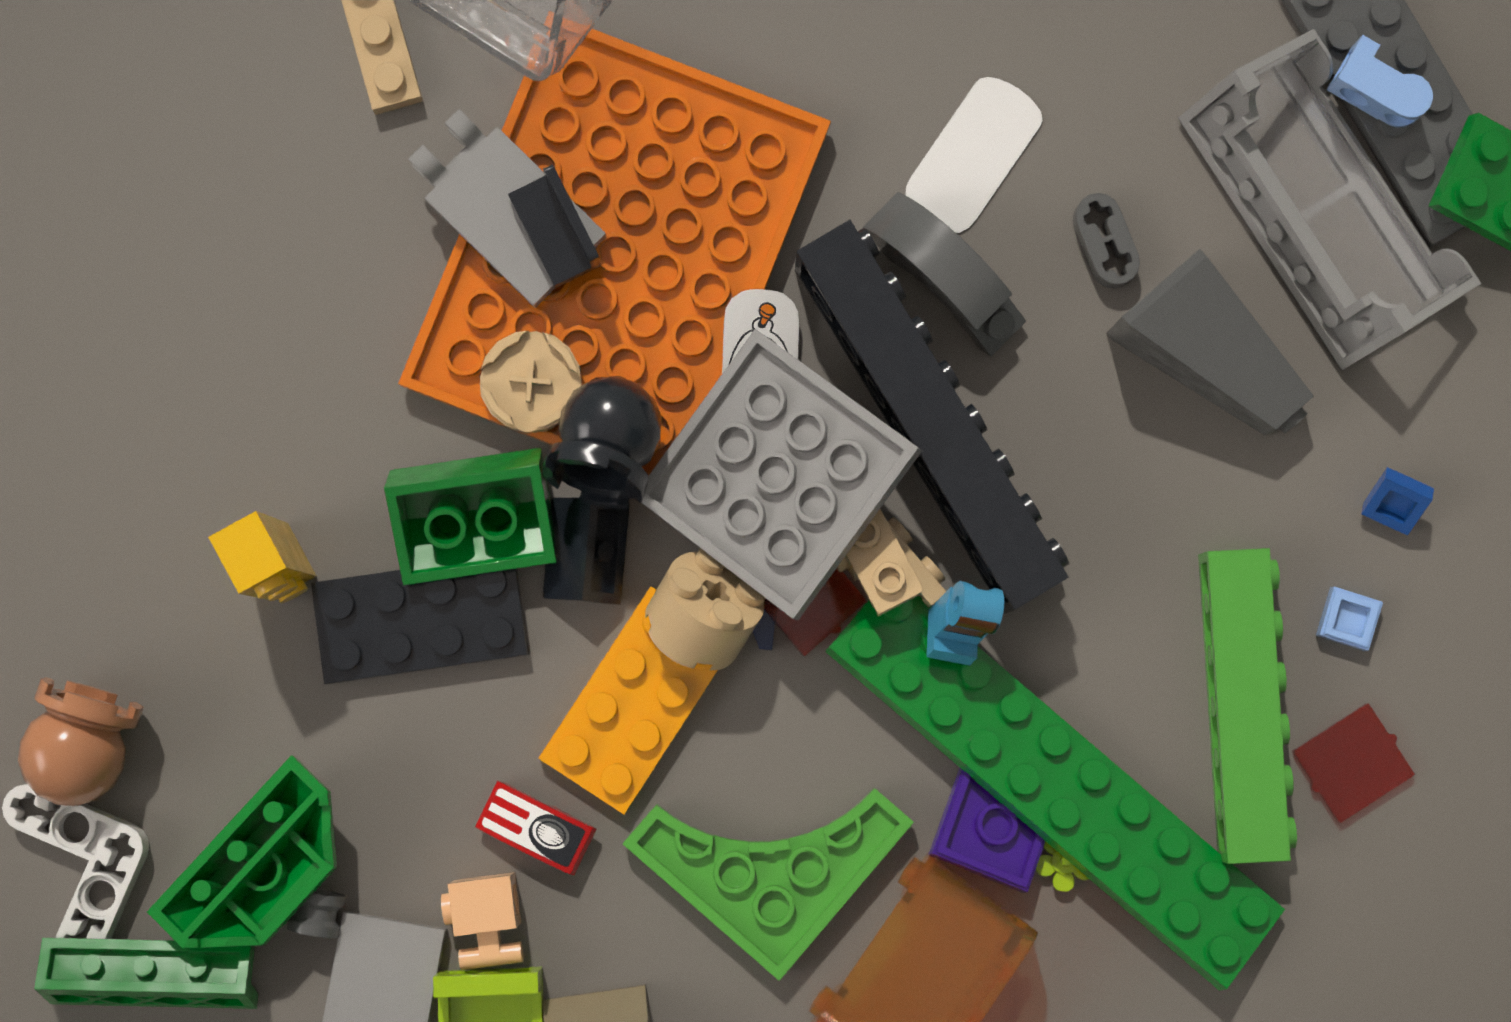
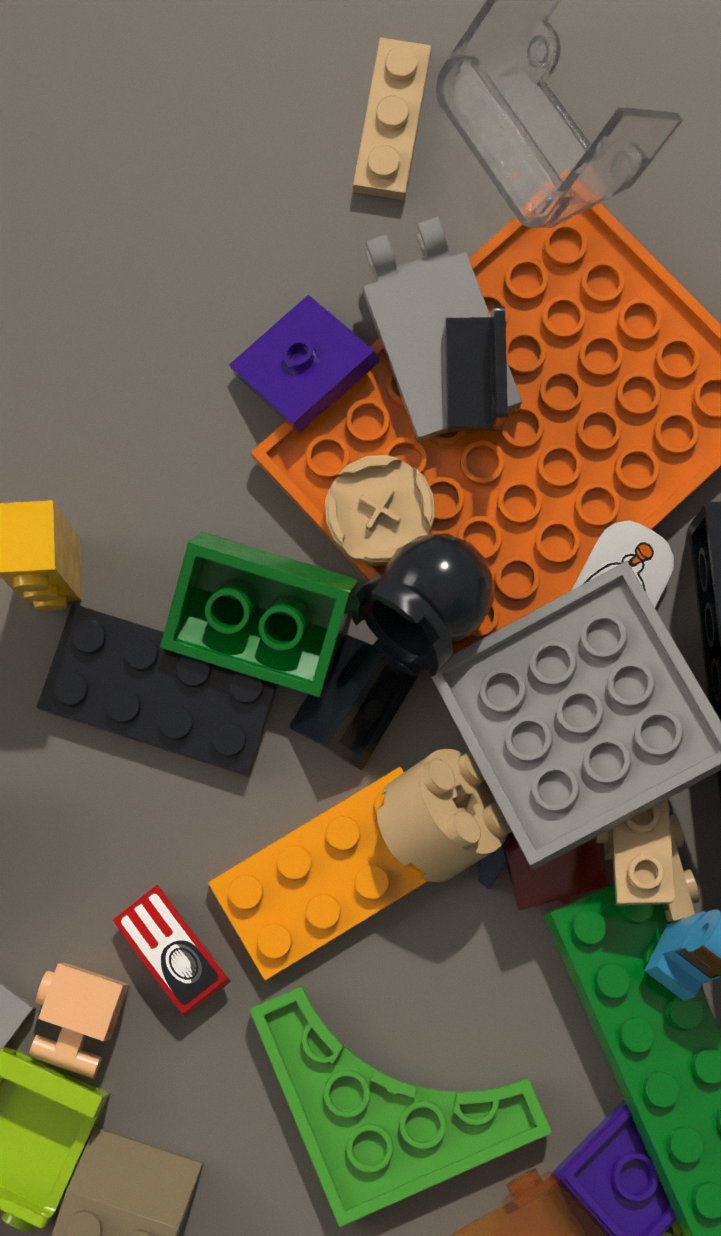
camera: 30 degrees right, 5 degrees down
(406, 285) = (304, 363): none -> dark purple plate

